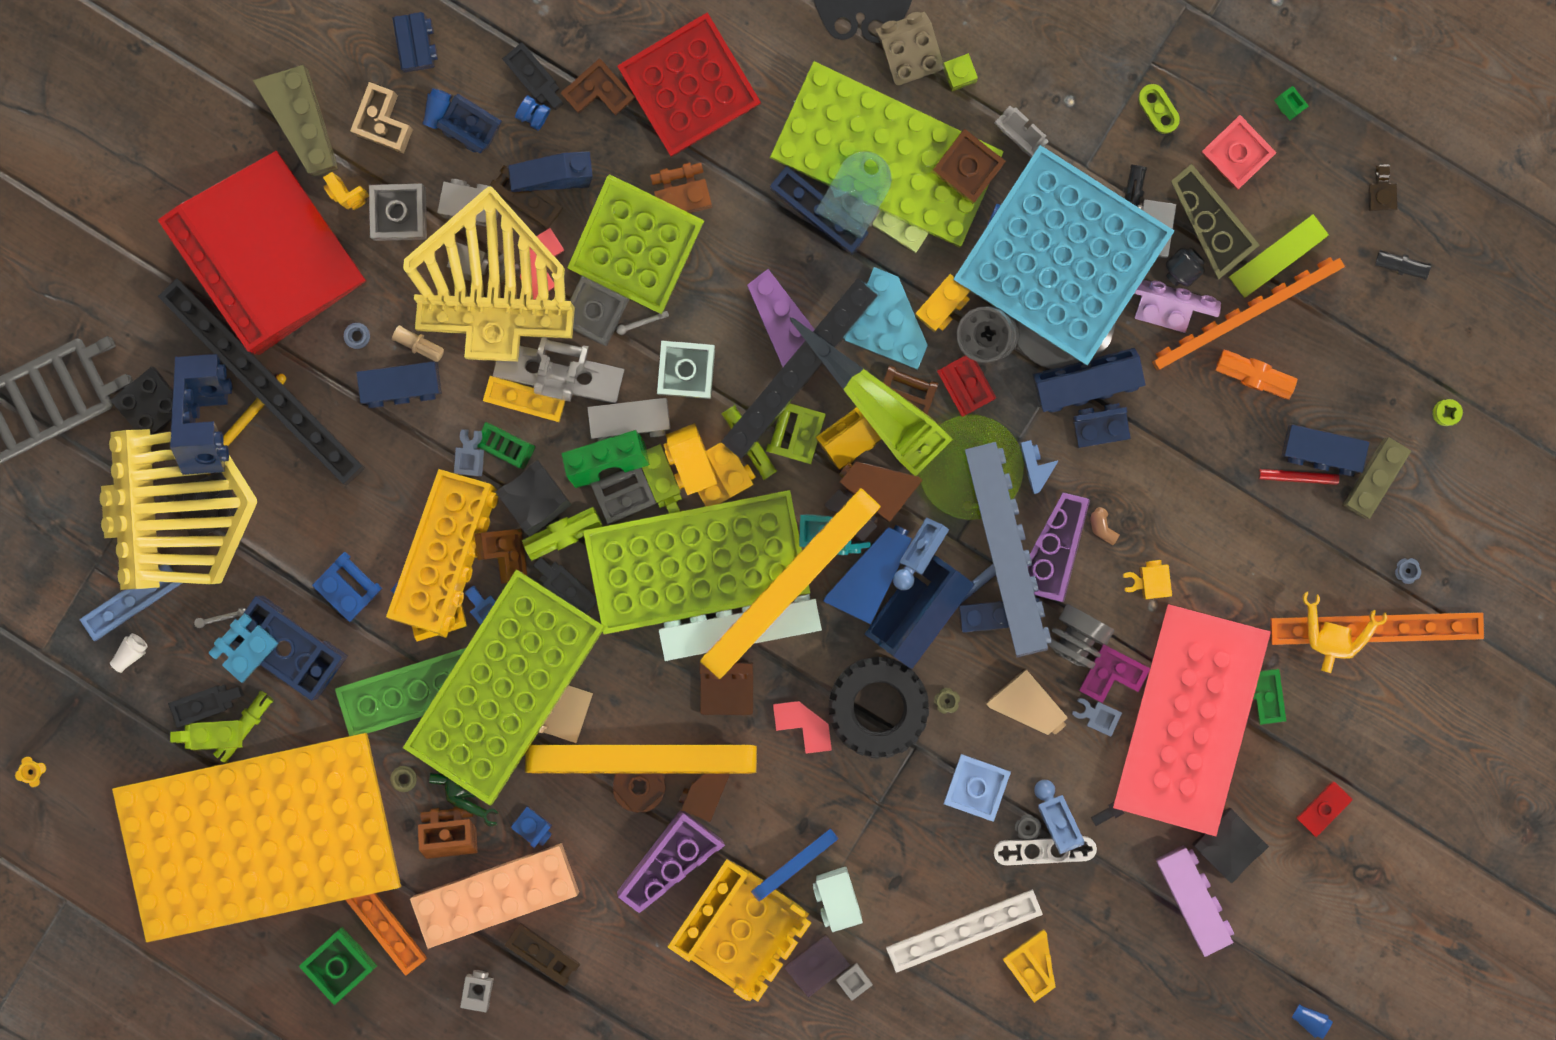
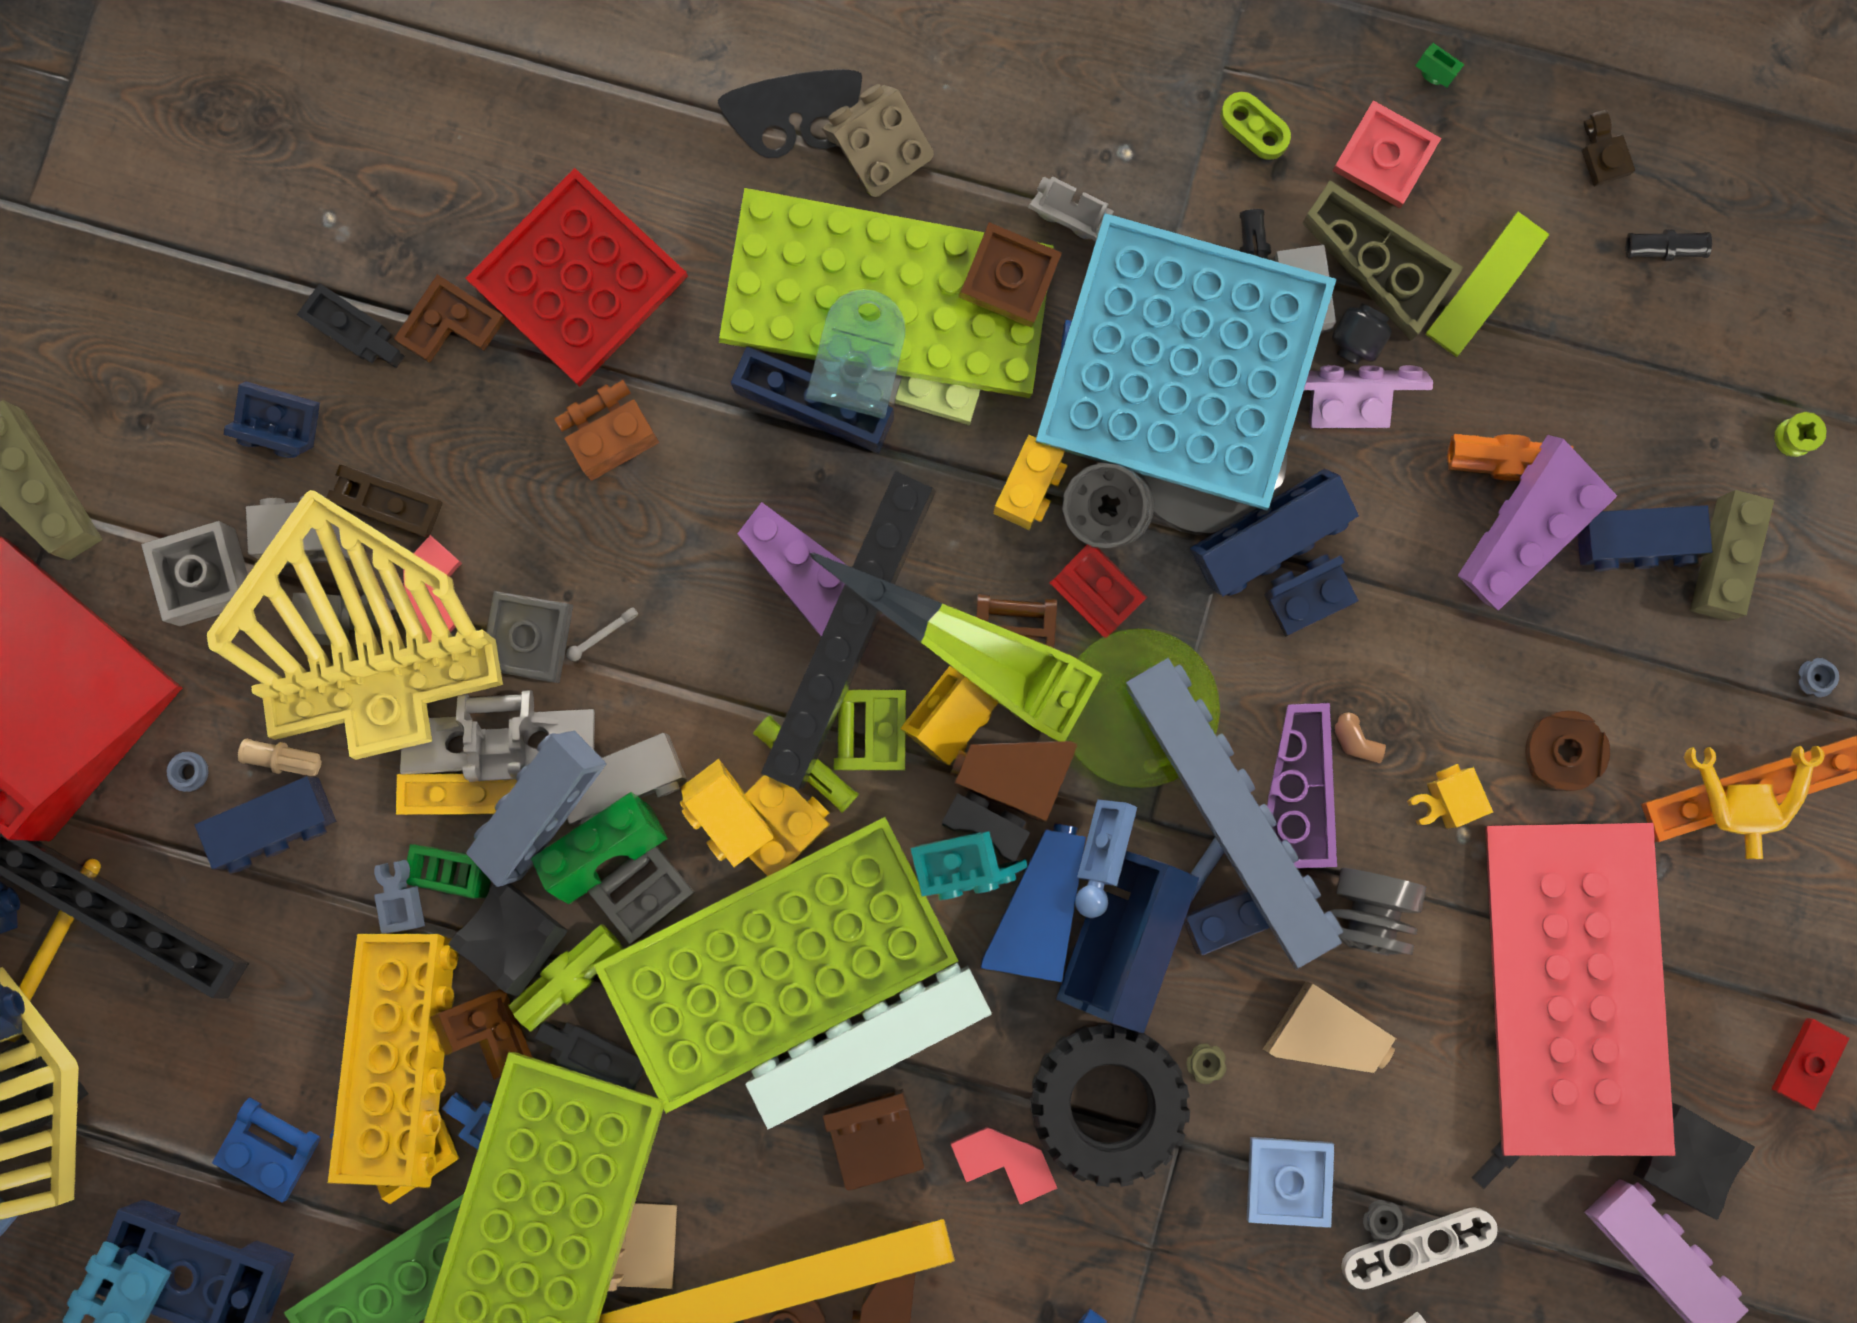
camera: 10 degrees left, 5 degrees down
(200, 622) = (61, 1266): light grey hinge -> none
(337, 190) = (123, 571): yellow bracket -> none
(374, 120) = (131, 449): tan brick -> none
(414, 42) = (163, 326): dark blue brick -> none
(436, 107) = (218, 409): blue cone -> none
(532, 113) = (361, 378): blue wheel -> none
(552, 172) = (411, 453): dark blue slope -> none
(574, 422) = (535, 807): none -> sand blue brick
(635, 244) = (558, 521): lime plate -> none
(662, 479) = (692, 856): lime hinge -> none
(686, 369) = (682, 683): light aqua brick -> none
(790, 583) = (924, 957): yellow beam -> none
(890, 323) = (962, 536): medium azure plate -> none
(960, 72) = (959, 151): lime brick -> none
(1036, 474) = (1238, 691): medium blue slope -> none
(1058, 818) = (1425, 1194): medium blue plate -> none
(1100, 717) = (1441, 1022): sand blue plate -> none
(1112, 667) = (1434, 944): magenta plate -> none
(1247, 565) = (1548, 764): none -> reddish brown plate
(1255, 422) = (1541, 517): none -> medium lavender wedge
(1256, 306) = (1481, 361): orange plate -> none
(1269, 697) = (1681, 923): green plate -> none
(1296, 476) = (1616, 587): red bar -> none

